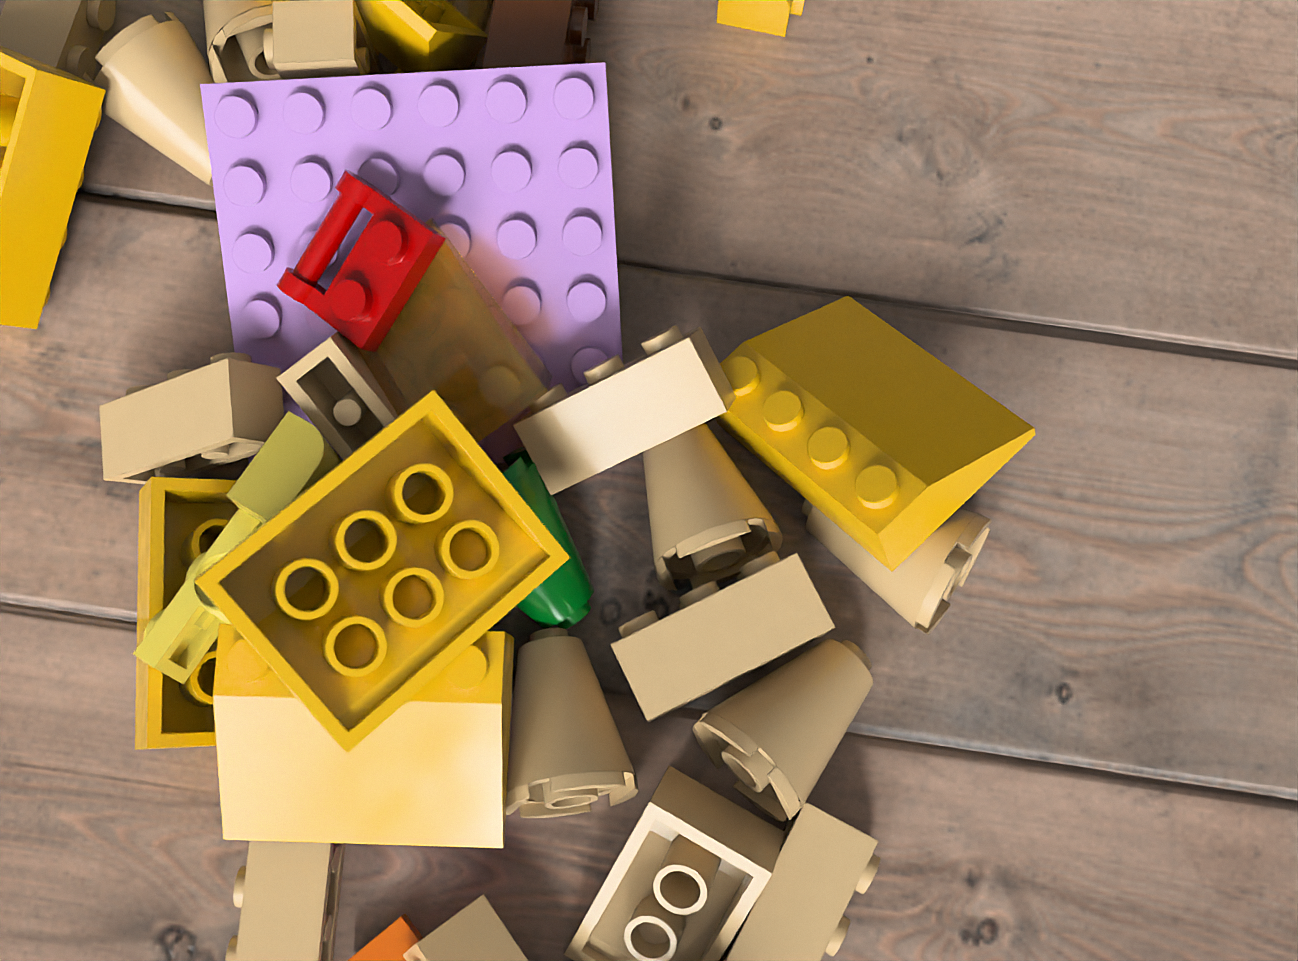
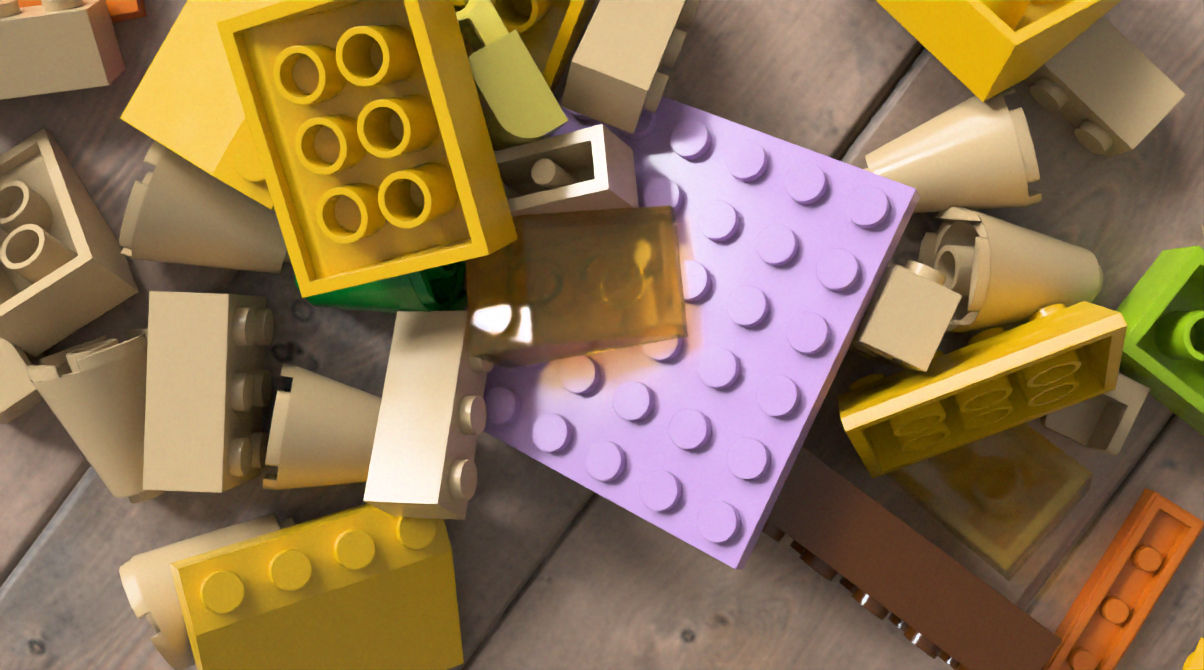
camera: 115 degrees right, 10 degrees up
(378, 270) = (655, 262): red plate -> none

